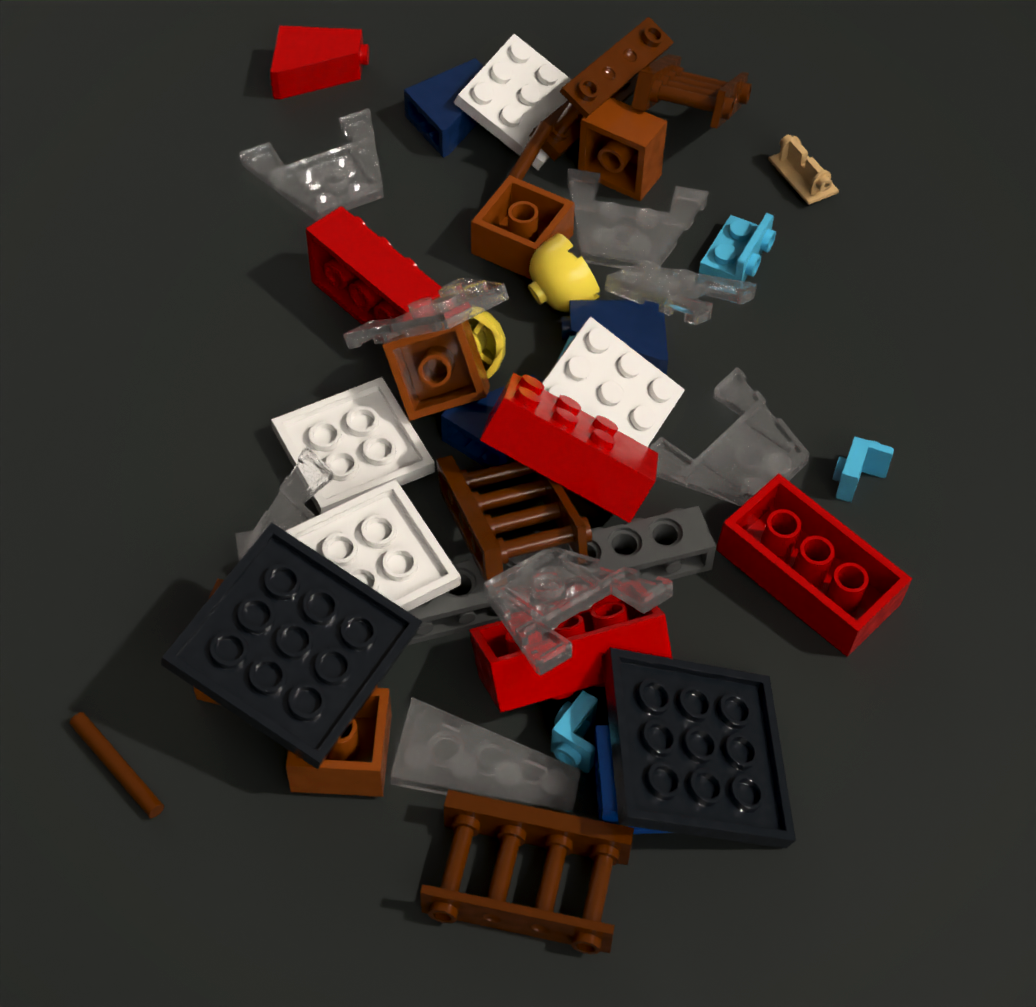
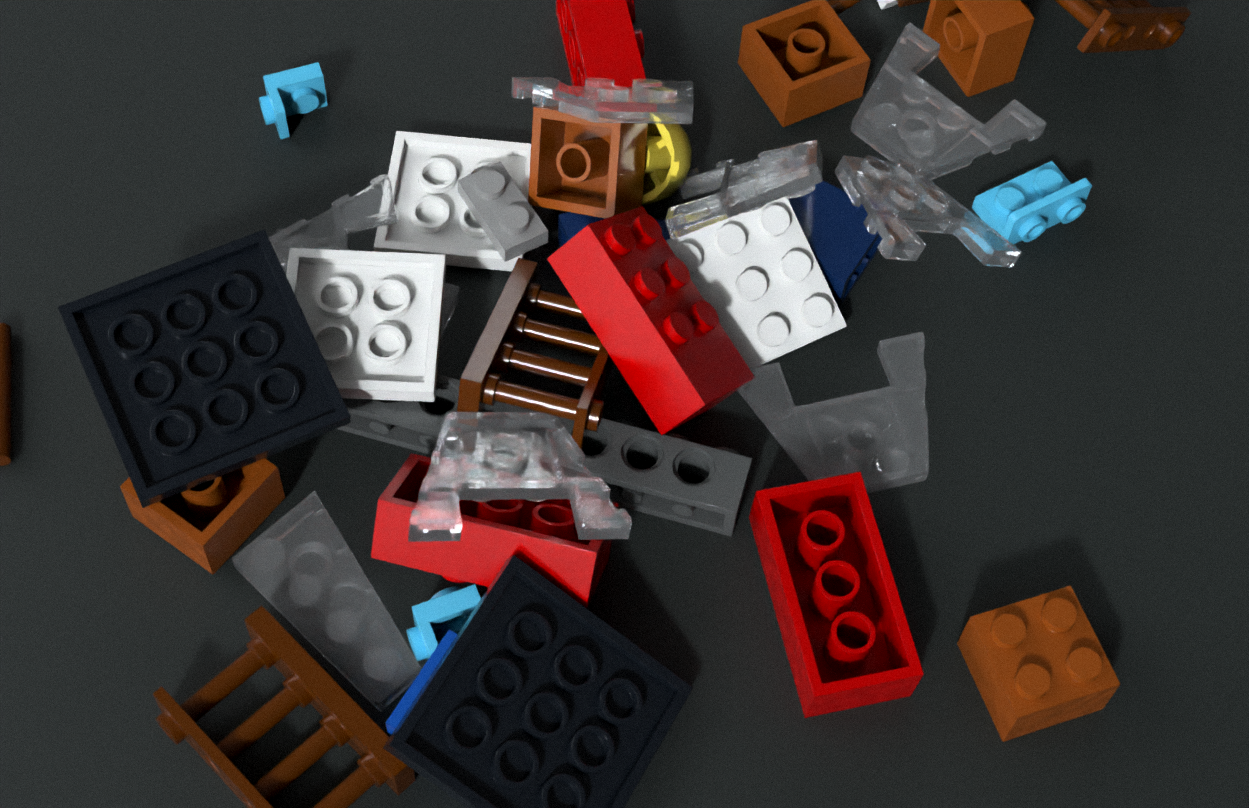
camera: 30 degrees right, 5 degrees up
(169, 433) = (292, 93): none -> medium azure bracket
(396, 434) = (502, 211): none -> light grey plate
(560, 275) = (798, 118): light yellow cylinder -> none
(570, 322) = (745, 186): none -> clear wing
(803, 171) = (1175, 153): tan hinge -> none
(864, 457) = (982, 505): medium azure bracket -> none
(966, 536) = (1037, 663): none -> dark orange brick

